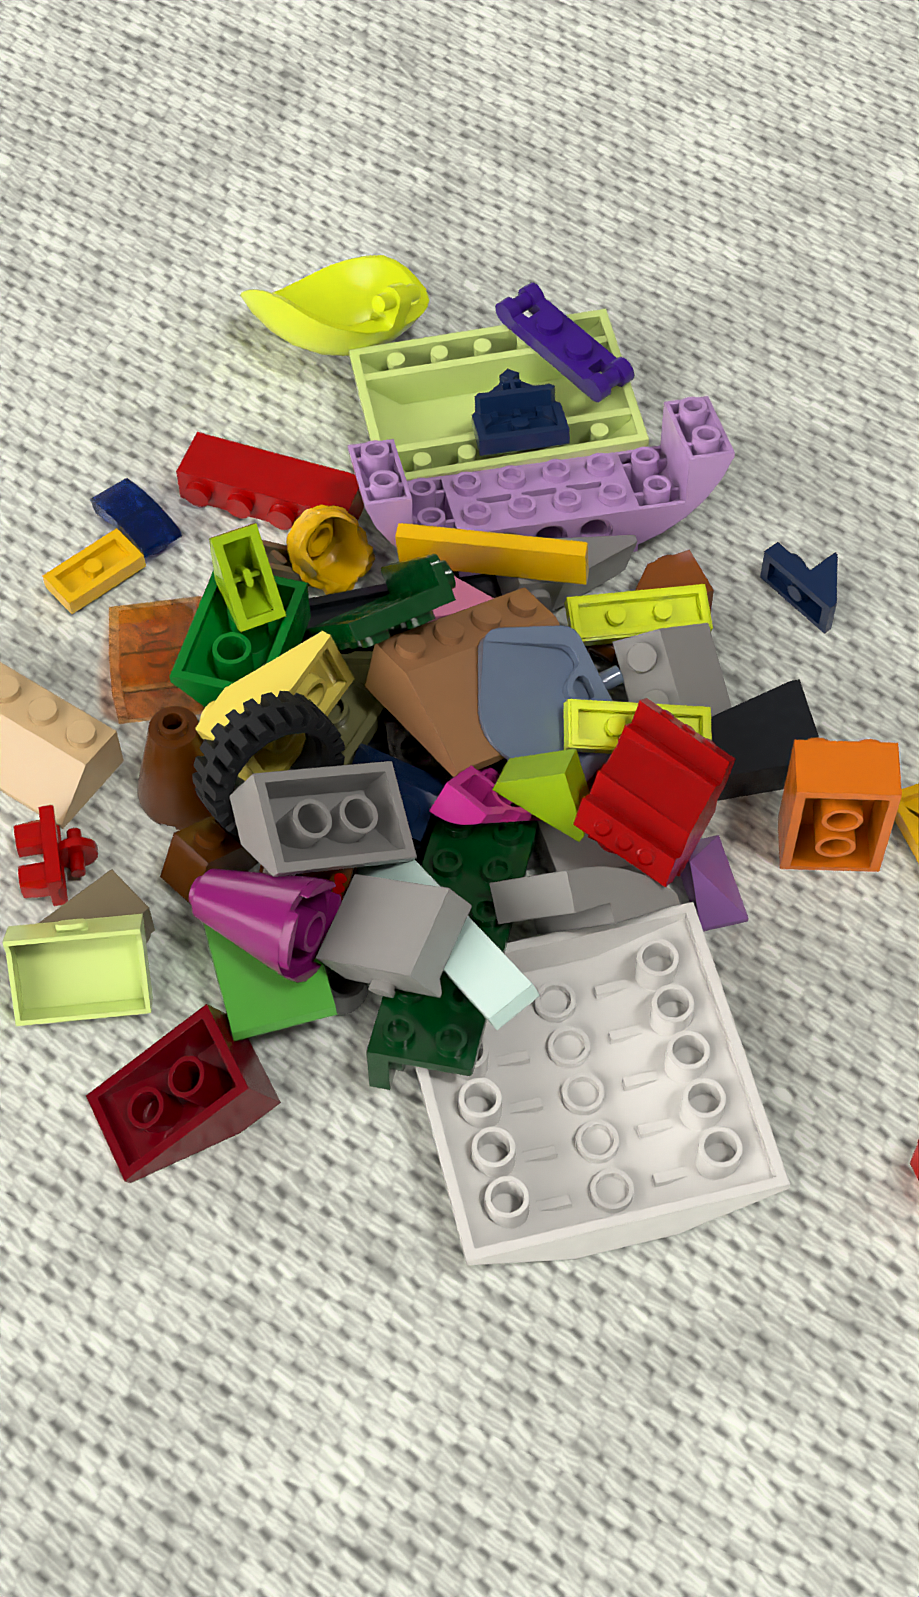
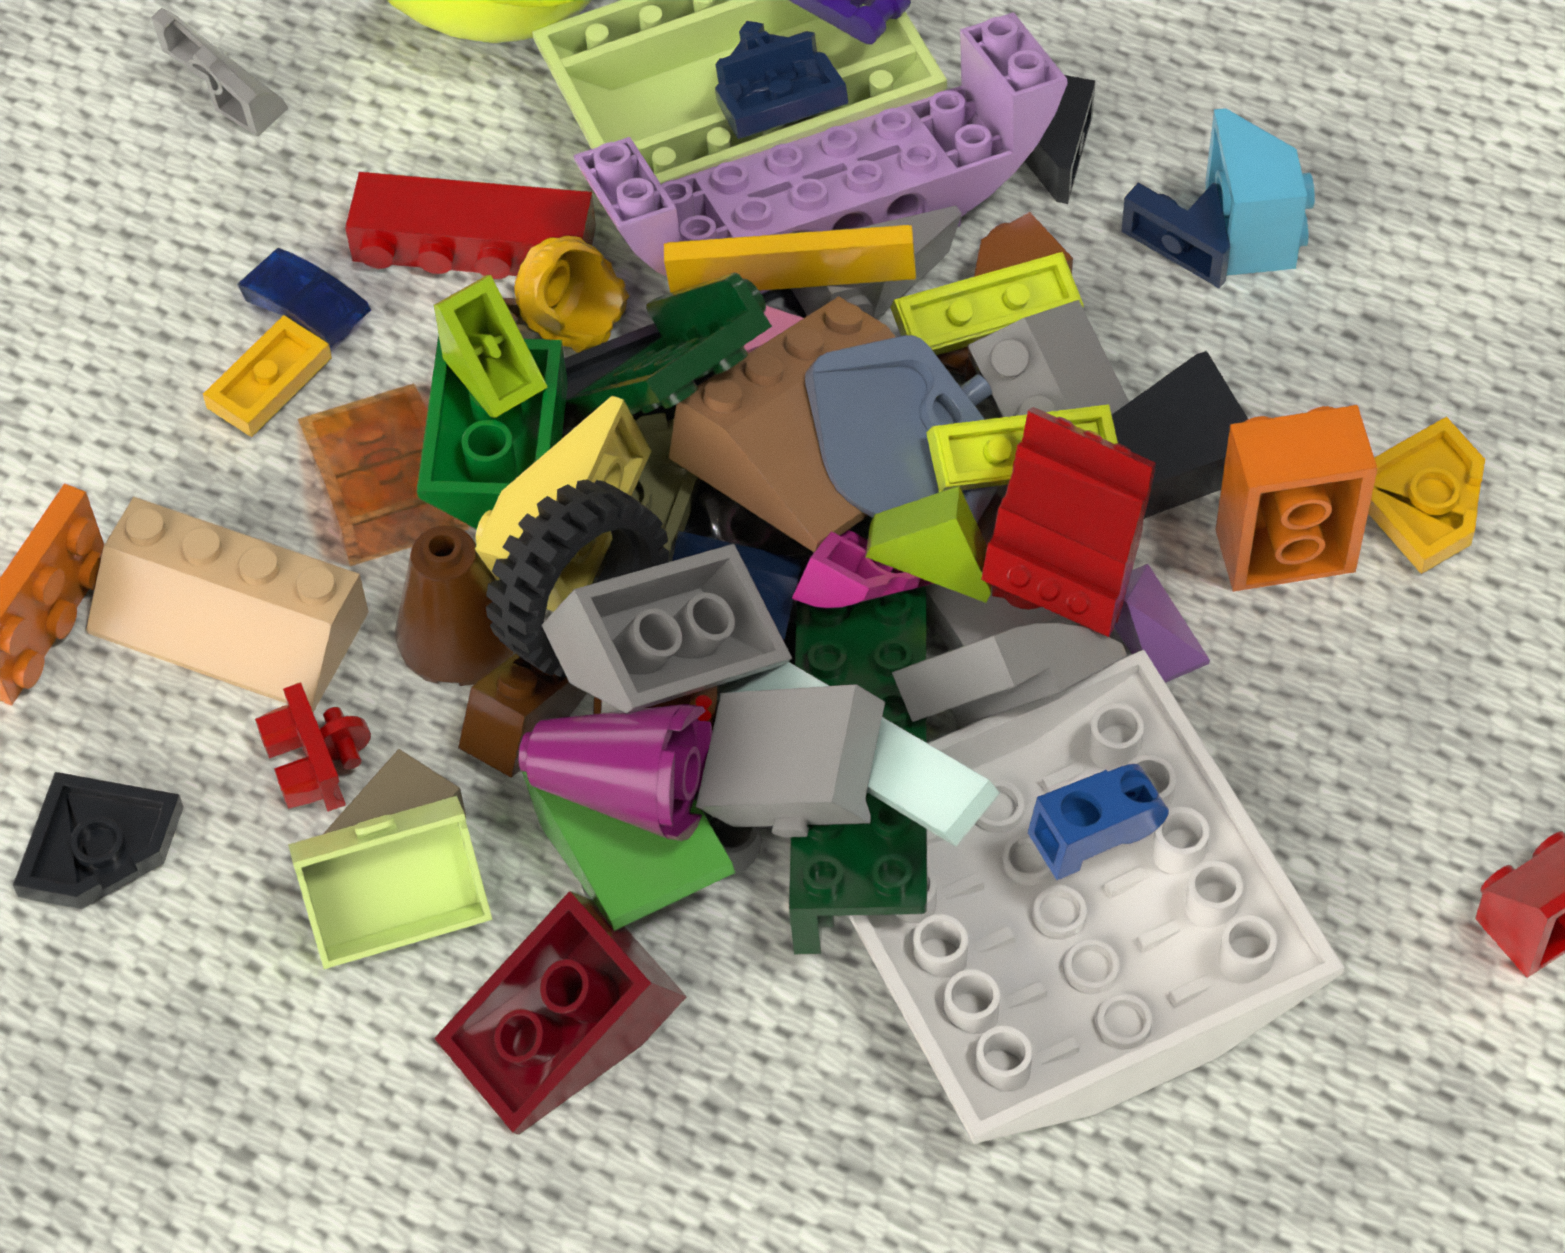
camera: 10 degrees left, 0 degrees up
(124, 355) = (231, 87): none -> light grey slope
(621, 1026) = (1095, 817): none -> blue leg
(731, 497) = (1061, 147): none -> black slope
(868, 568) = (1259, 194): none -> medium azure slope

